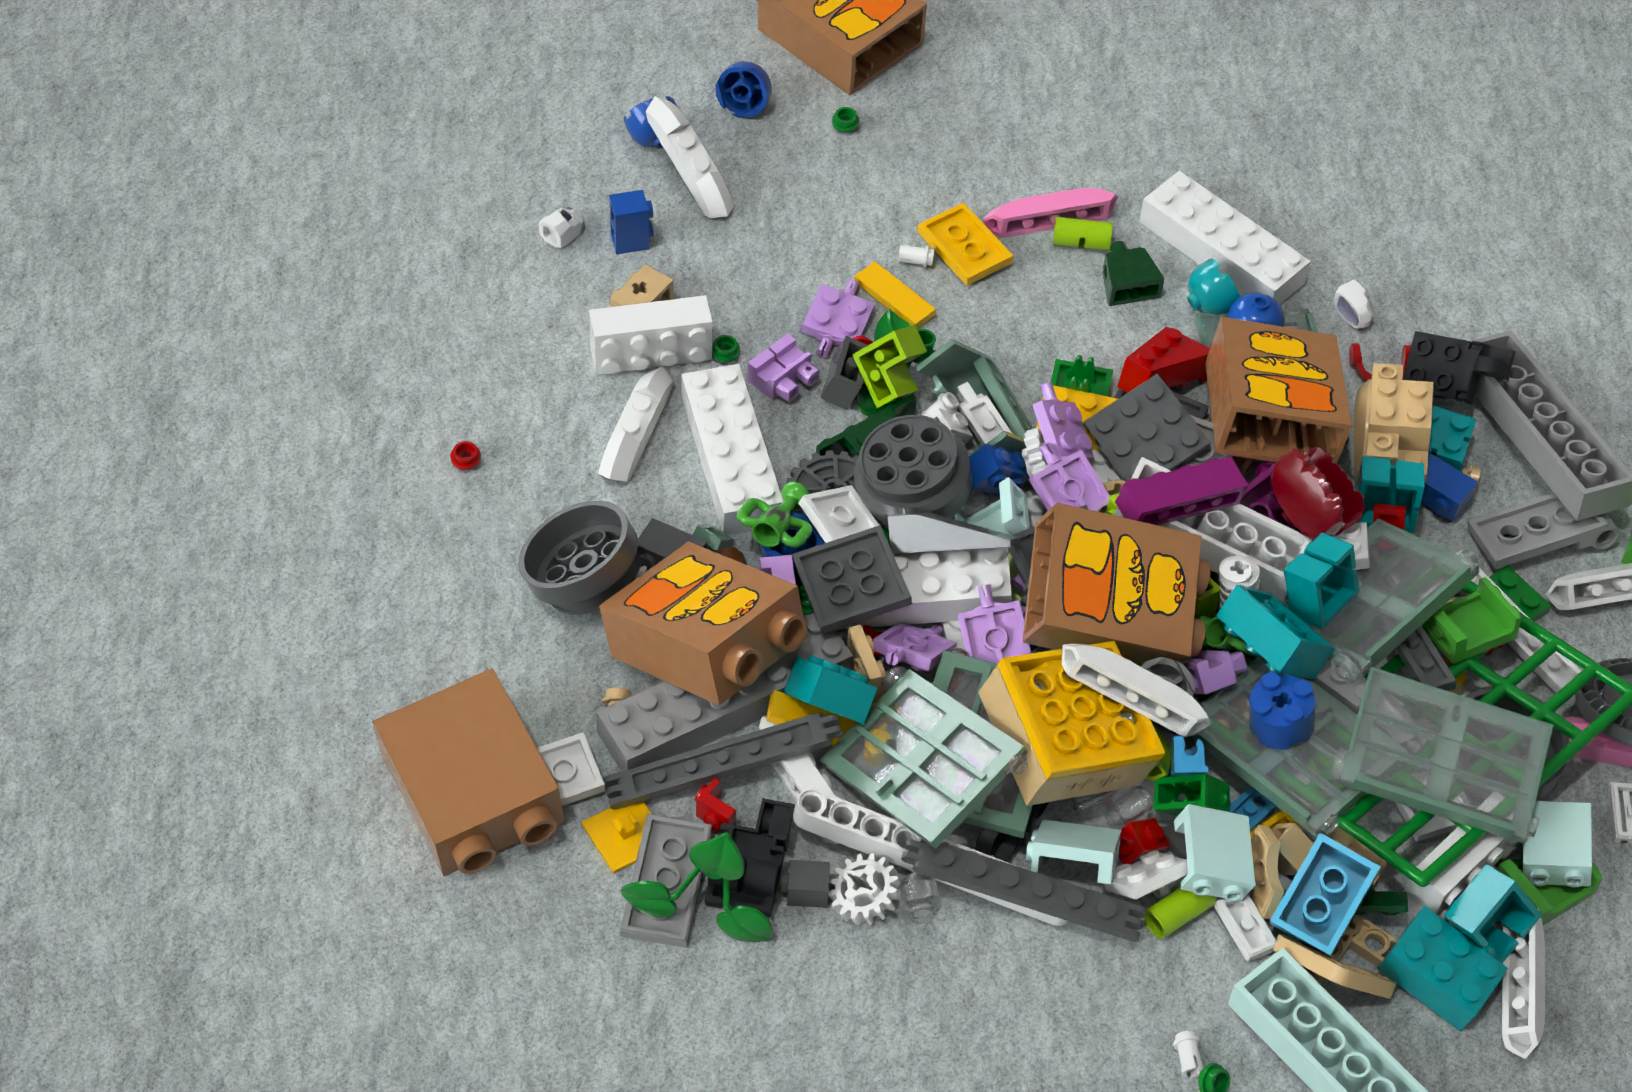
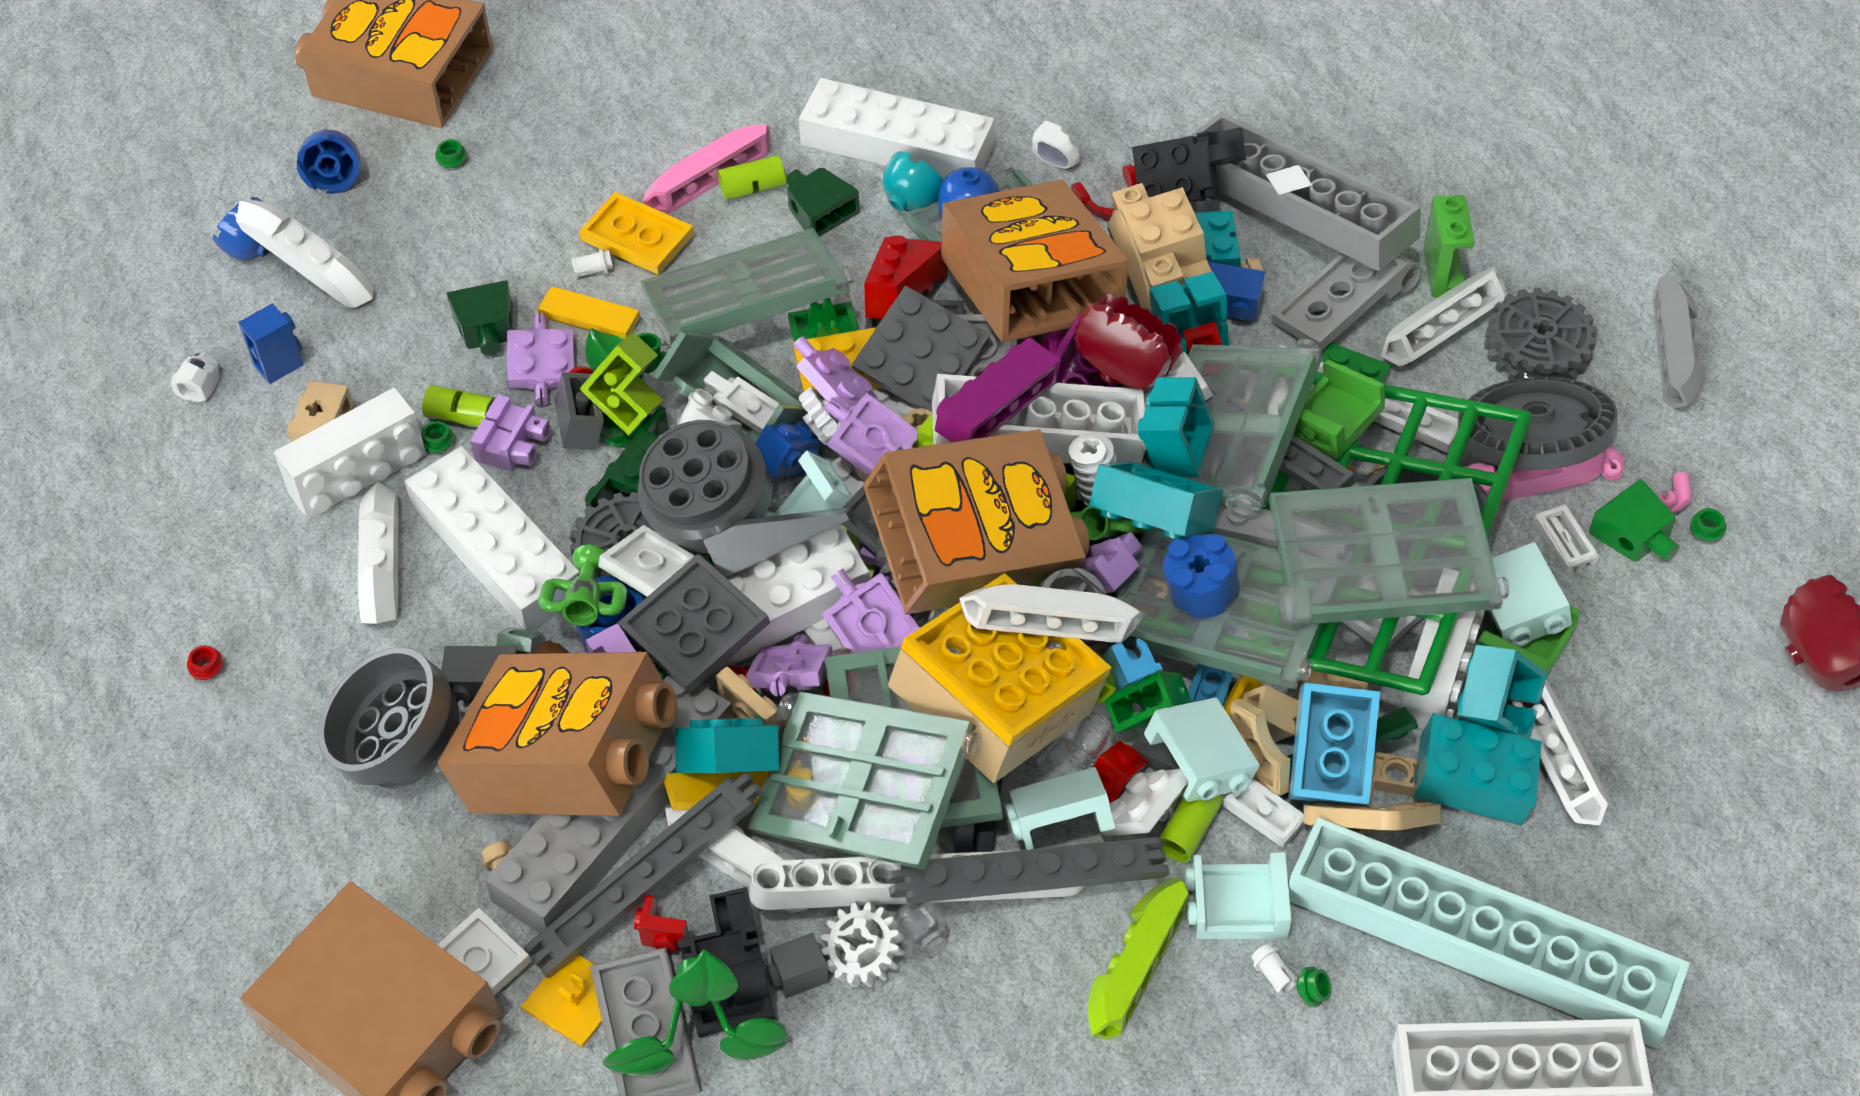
camera: 20 degrees left, 0 degrees up
(751, 328) = (455, 405): none -> lime pin
(808, 264) = (483, 315): none -> dark green torso
(1030, 322) = (744, 286): none -> clear door
(1071, 1003) = (1120, 990): none -> lime brick
(1187, 986) = (1239, 899): none -> light aqua panel
(1535, 411) = (1288, 179): none -> white sticker

